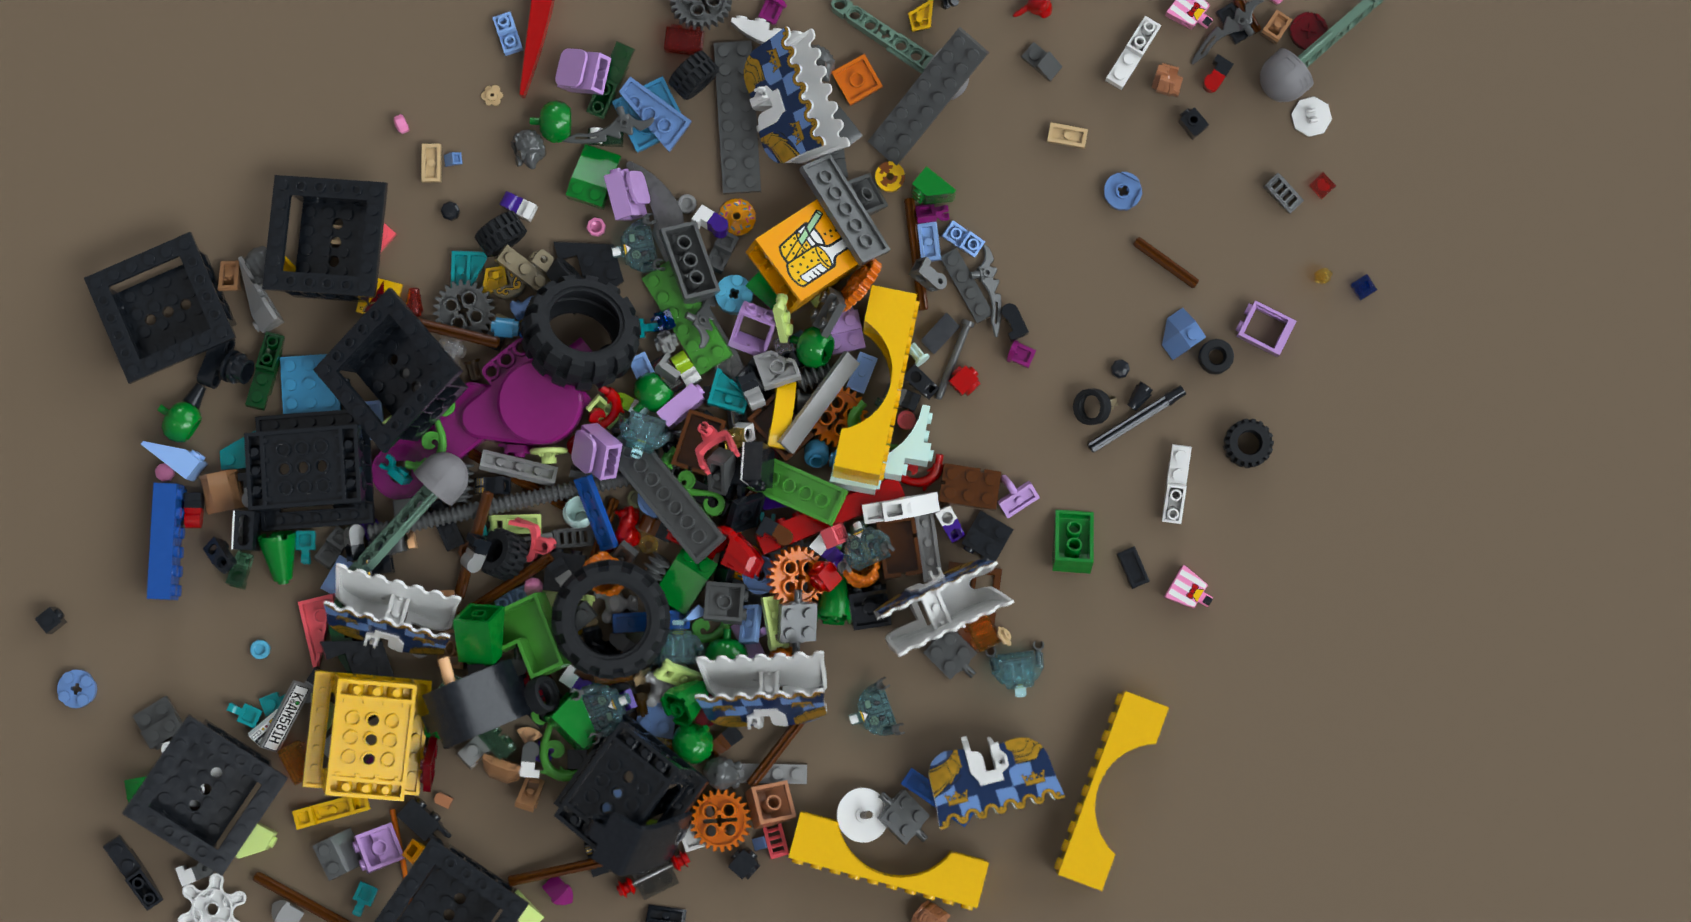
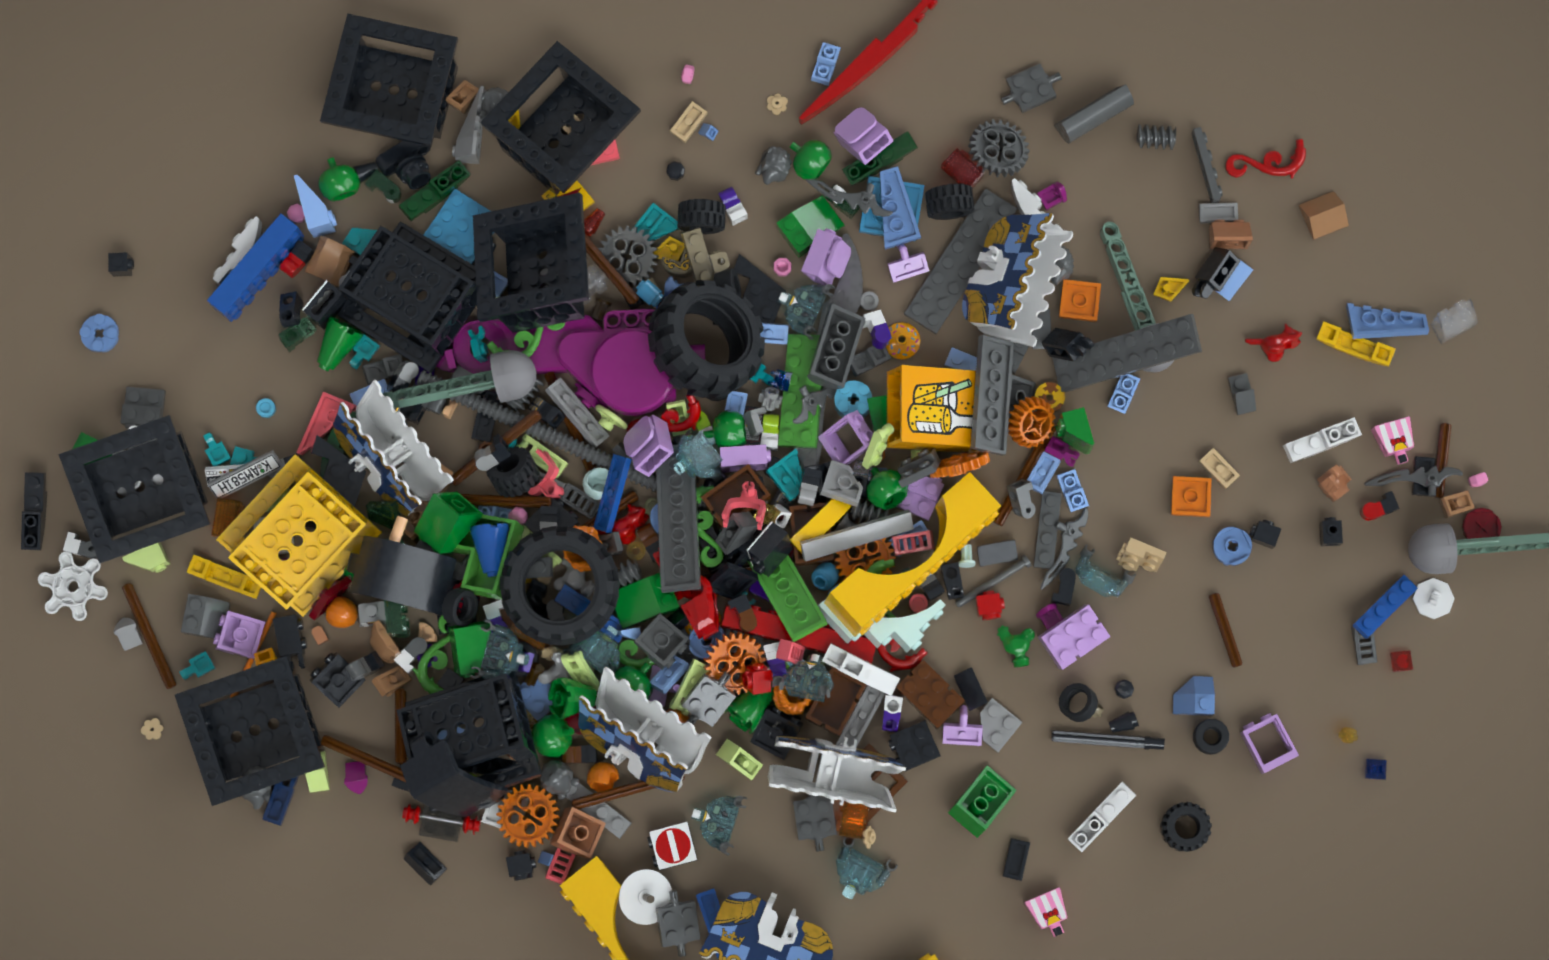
camera: 35 degrees right, 5 degrees down
(140, 529) = (242, 244): none -> white slope
(221, 396) = (385, 186): none -> clear green leg
(382, 503) = (448, 362): none -> magenta tile
(422, 664) = (383, 512): none -> clear green wing
(448, 769) = (341, 612): none -> orange hair
(484, 825) = (335, 680): none -> black plate
(500, 798) = (365, 666): none -> leg
(530, 628) = (490, 545): none -> blue cone
(577, 842) = (400, 752): none -> reddish brown axle
(631, 285) = (775, 333): none -> light blue plate
(697, 151) = (908, 265): none -> lavender plate
(756, 745) = (602, 776): none -> orange hair
(798, 198) = (960, 360): none -> light blue plate
(853, 759) = (672, 846): none -> piece
(855, 650) = (739, 759): none -> yellowish green slope
(873, 124) = (1066, 344): none -> black hinge
(879, 363) = (930, 541): none -> coral slope
(895, 206) = (1037, 423): none -> orange gear
(947, 130) = (1123, 393): none -> light blue slope
(998, 458) = (970, 689): none -> black slope
(1009, 396) = (1017, 644): none -> green animal
(1036, 295) = (1098, 579): none -> clear light blue torso
(1040, 471) = (997, 725): none -> light grey plate
(1050, 356) = (1073, 636): none -> lavender piece
(1054, 251) = (1139, 553): none -> tan plate
(1061, 174) = (1191, 496): none -> orange plate
(1142, 161) = (1265, 533): none -> black brick
(1278, 151) = (1385, 606): none -> blue plate

